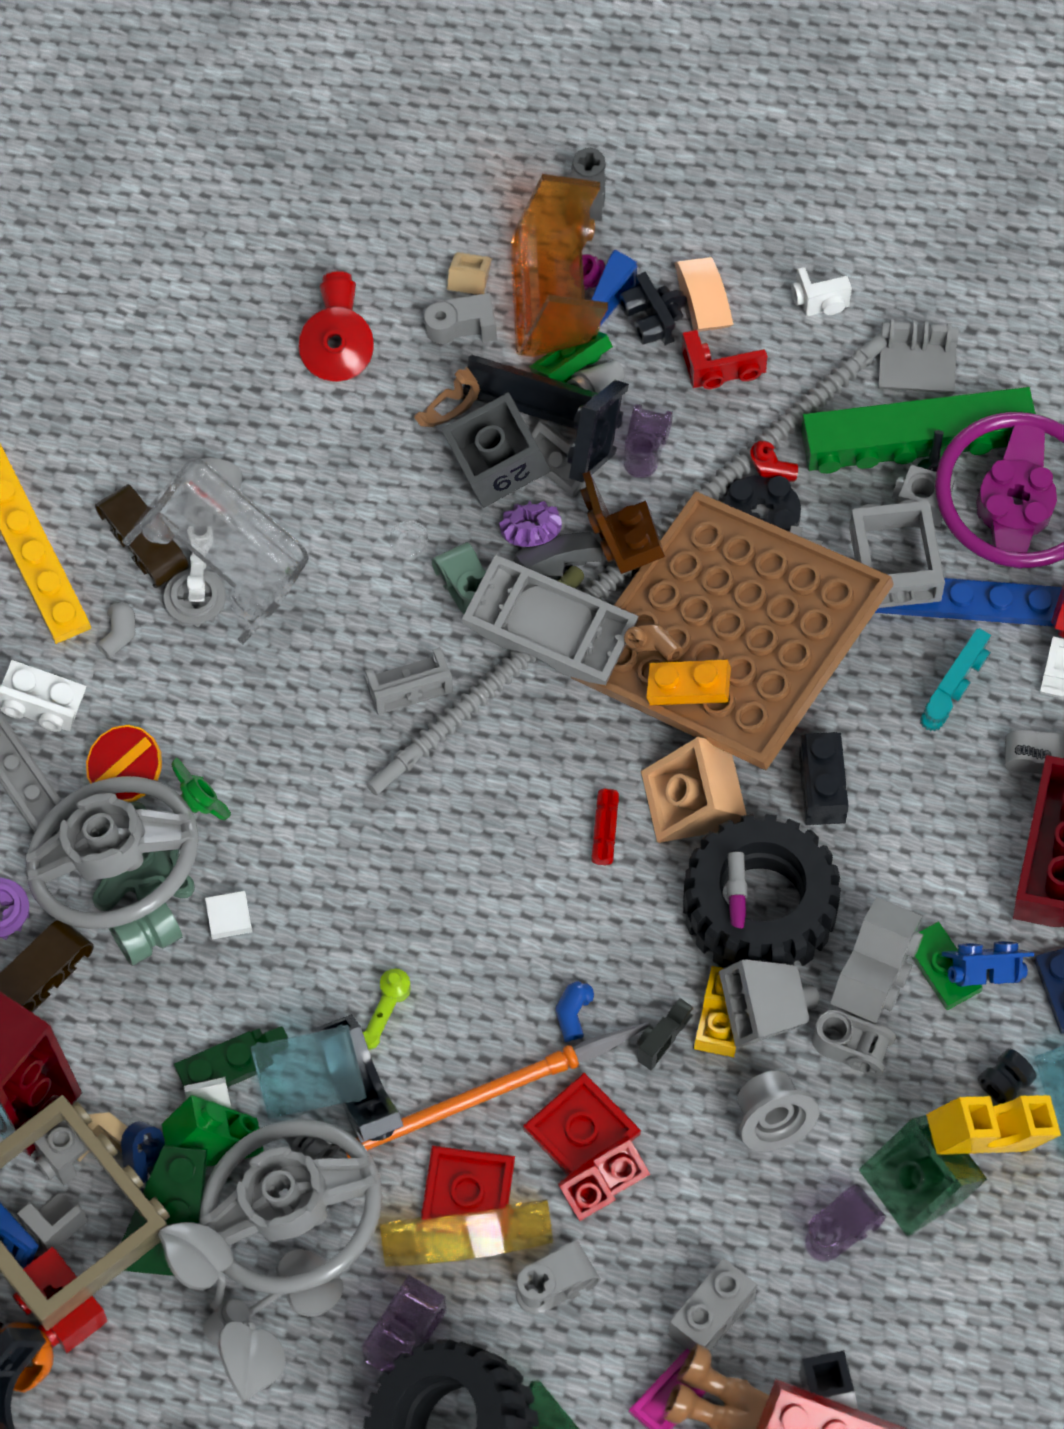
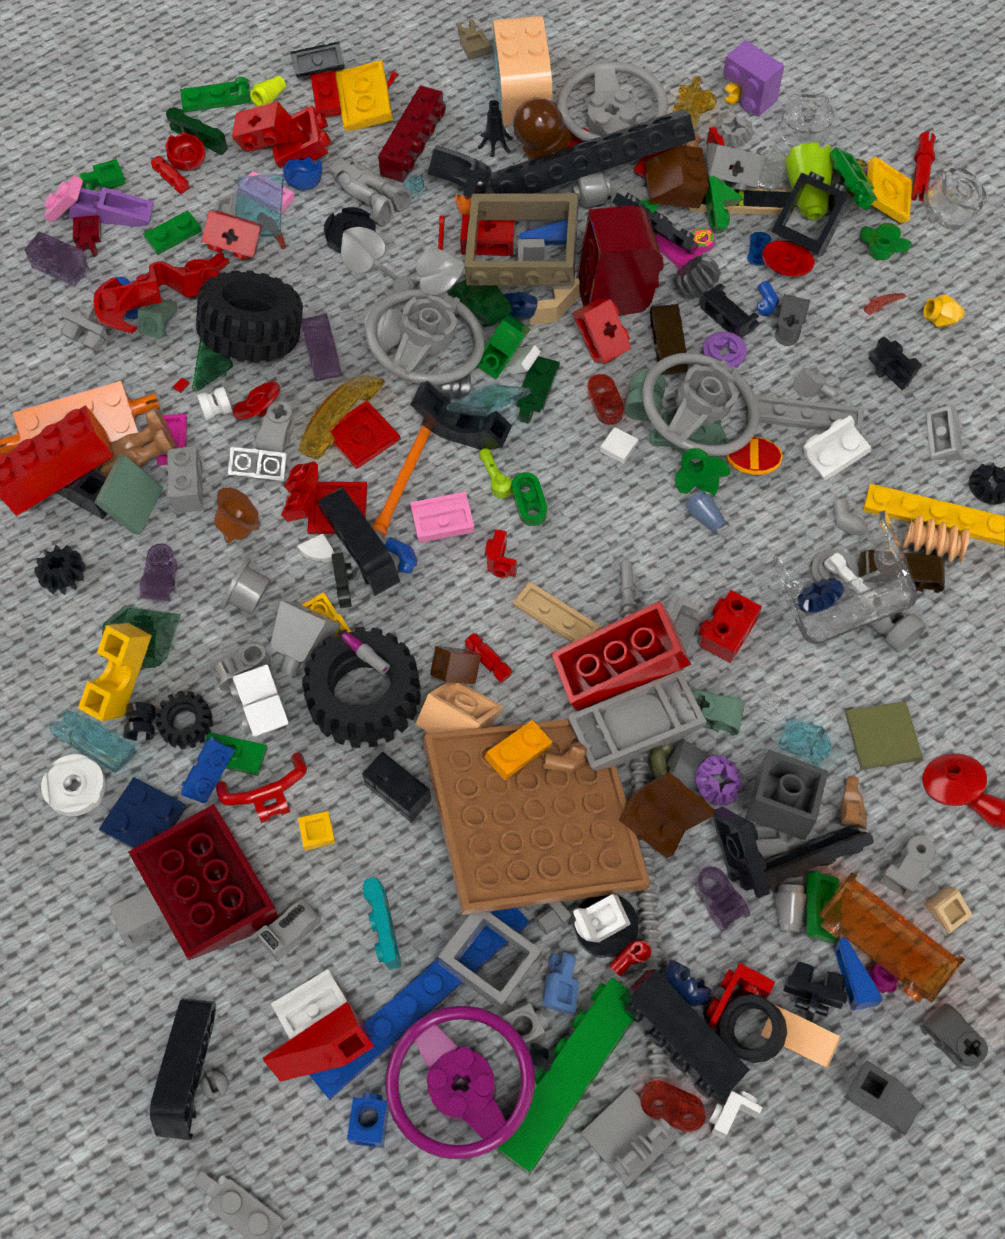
camera: 135 degrees right, 0 degrees up
(74, 527) = (937, 538): none -> light nougat piece
(99, 1033) = (602, 330): none -> red brick
(133, 1342) = (441, 232): none -> red hinge
(179, 974) = (606, 400): none -> clear red plate
(236, 762) = (705, 511): none -> sand blue cone
(247, 549) = (820, 595): none -> dark blue gear
(344, 432) = (883, 735): none -> olive tile
(356, 635) = (729, 626): none -> red brick
(384, 943) = (529, 500): none -> green plate
(418, 486) = (806, 741): none -> clear light blue bracket
(482, 915) = (496, 562): none -> red bracket
(492, 1007) = (442, 517): none -> bright pink plate
(495, 805) = (554, 613): none -> tan tile
(501, 679) = (621, 657): none -> red brick
(551, 1352) = (257, 401): none -> red dish
(596, 1388) = (208, 406): none -> white wheel
(606, 1052) = (359, 540): none -> black beam
(610, 1254) = (257, 463): none -> slope
(646, 843) = (455, 665): none -> reddish brown panel
(650, 1100) = (317, 549): none -> white tile
(695, 205) = (883, 1097): none -> dark grey slope
(700, 1210) = (235, 515): none -> dark orange piece
(755, 305) = (733, 1012): none -> black tyre
(755, 401) = (679, 978): none -> dark blue hair
(770, 498) = (601, 919): none -> white bracket
(794, 1340) = (128, 495): none -> sand green tile
(801, 363) = (684, 1034): none -> black brick
(856, 493) = (560, 988): none -> medium blue plate
(863, 336) = (674, 1107): none -> clear red plate
(927, 1340) = (54, 579): none -> black gear
(934, 815) = (316, 830): none -> yellow plate
(952, 879) = (265, 793): none -> red piece
(966, 1017) = (173, 708): none -> black tyre

